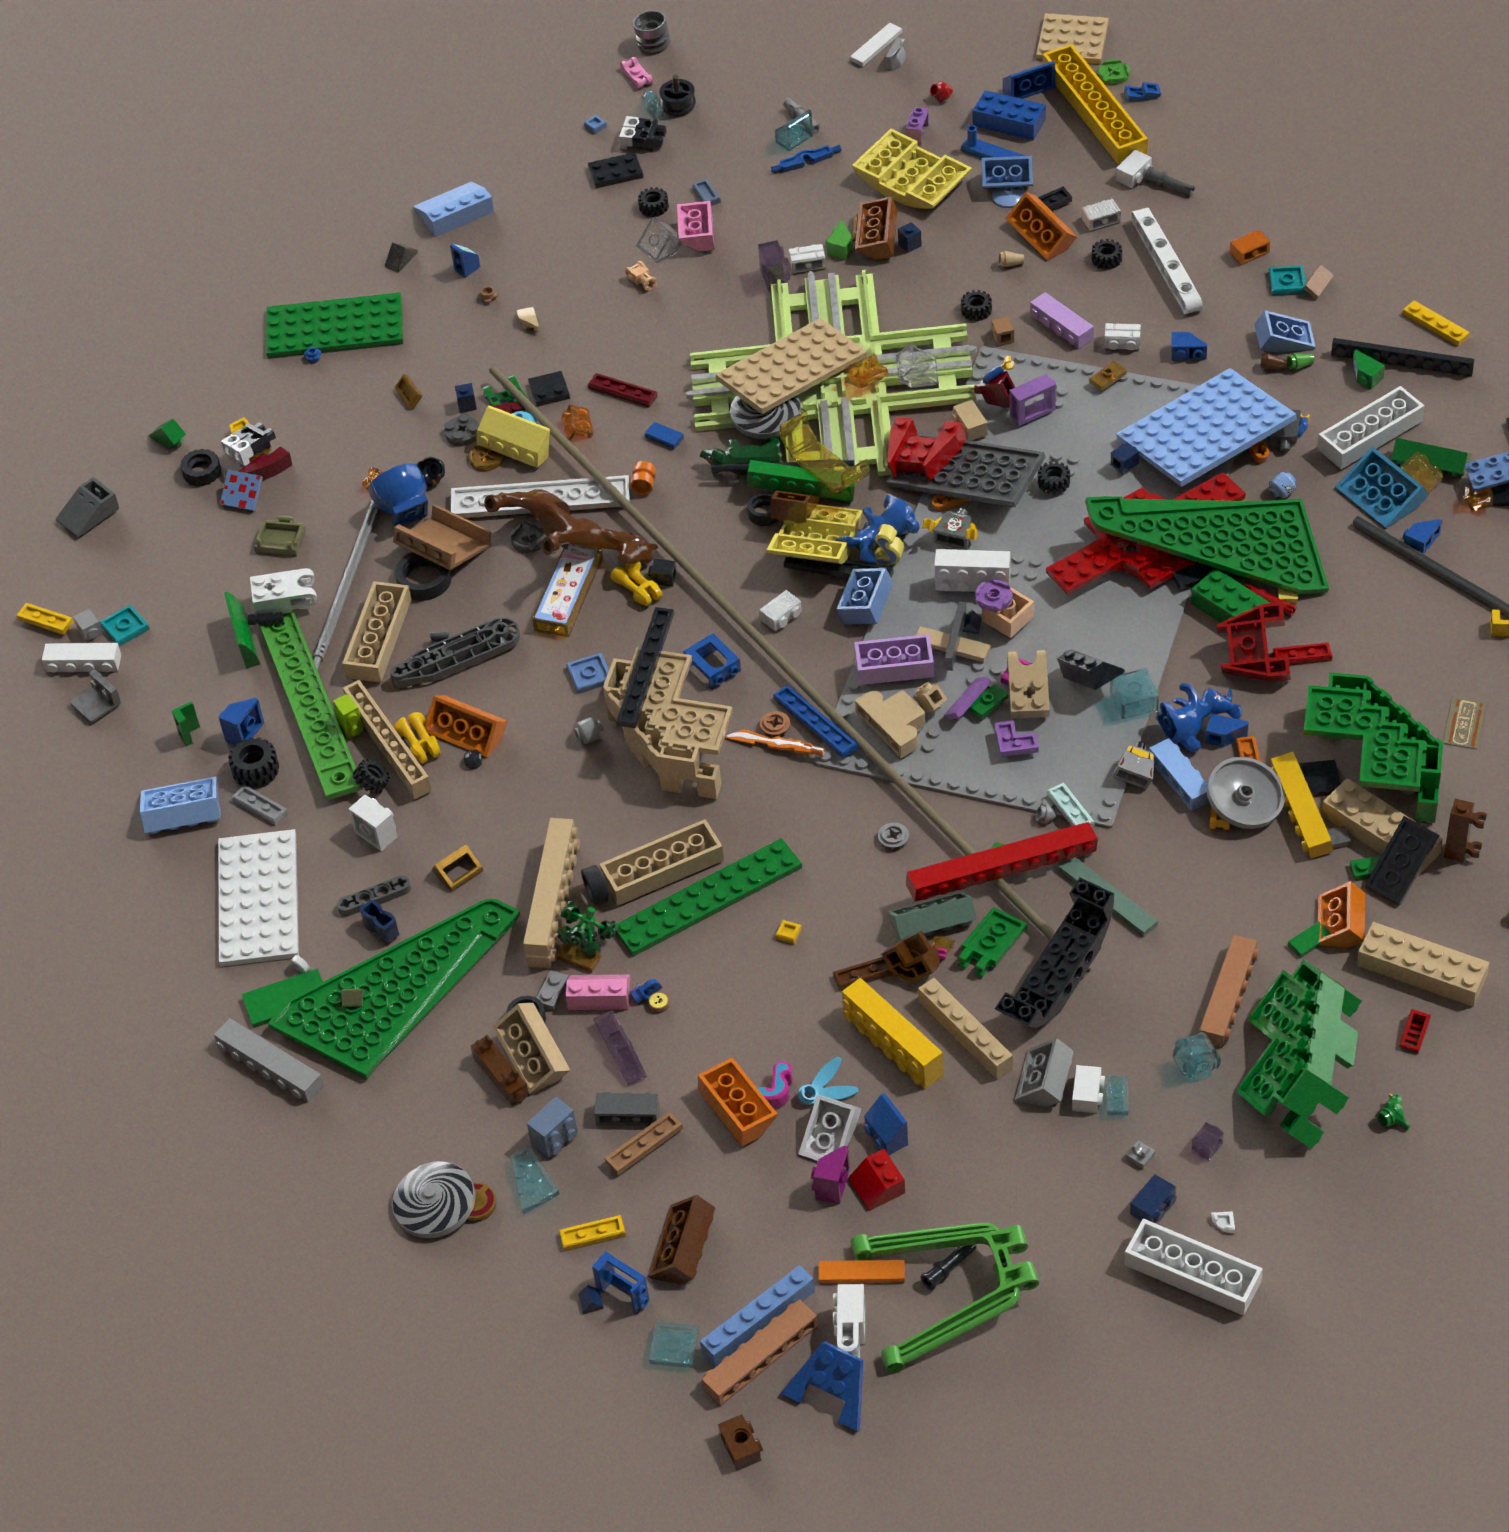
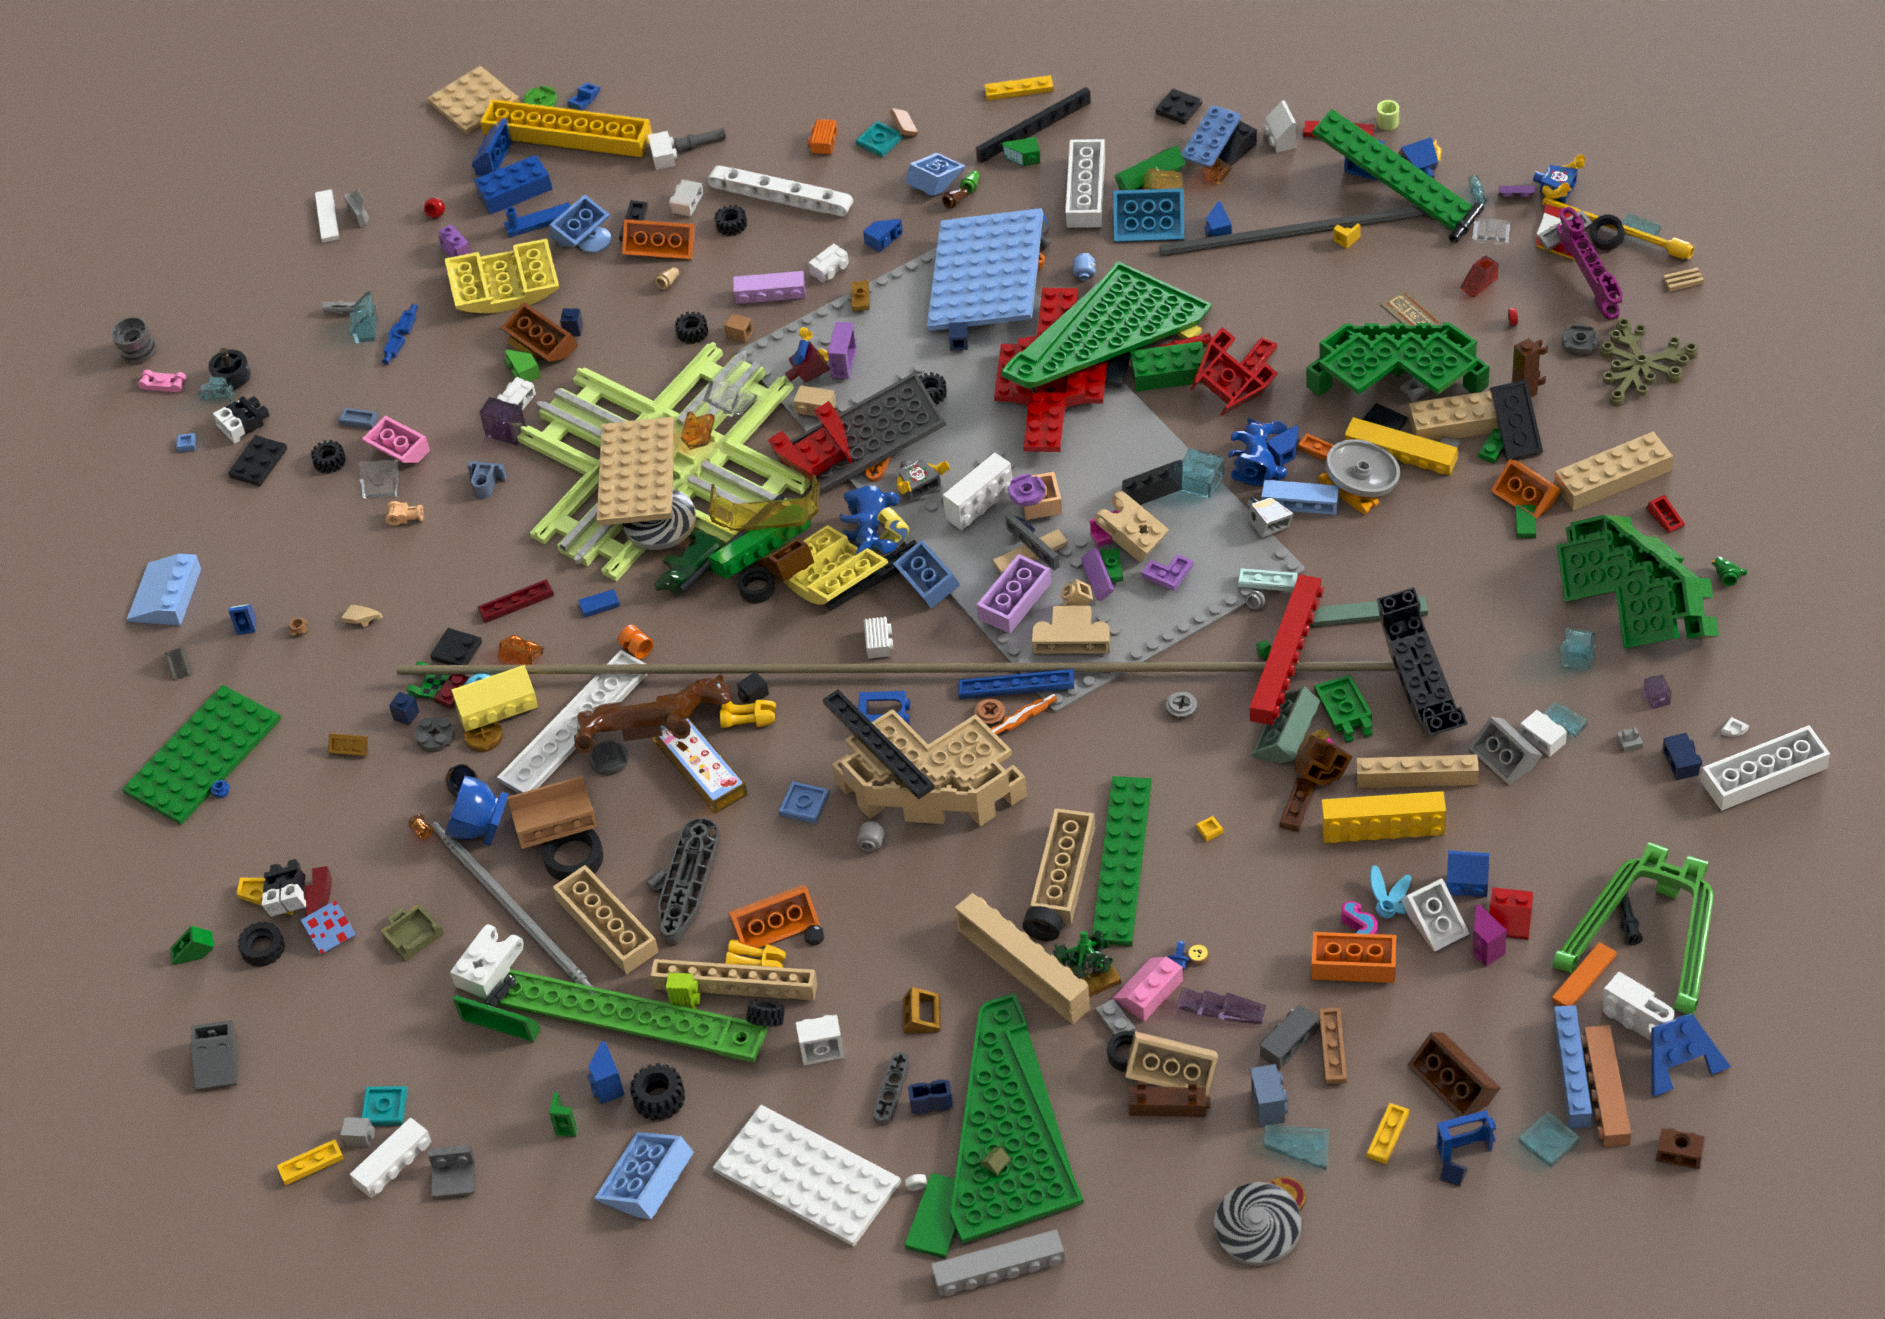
camera: 50 degrees left, 0 degrees up
(260, 805) = (703, 1116): light grey tile -> none
(715, 294) = (485, 476): none -> sand blue pin
(1228, 990) = (1530, 594): nougat brick -> none

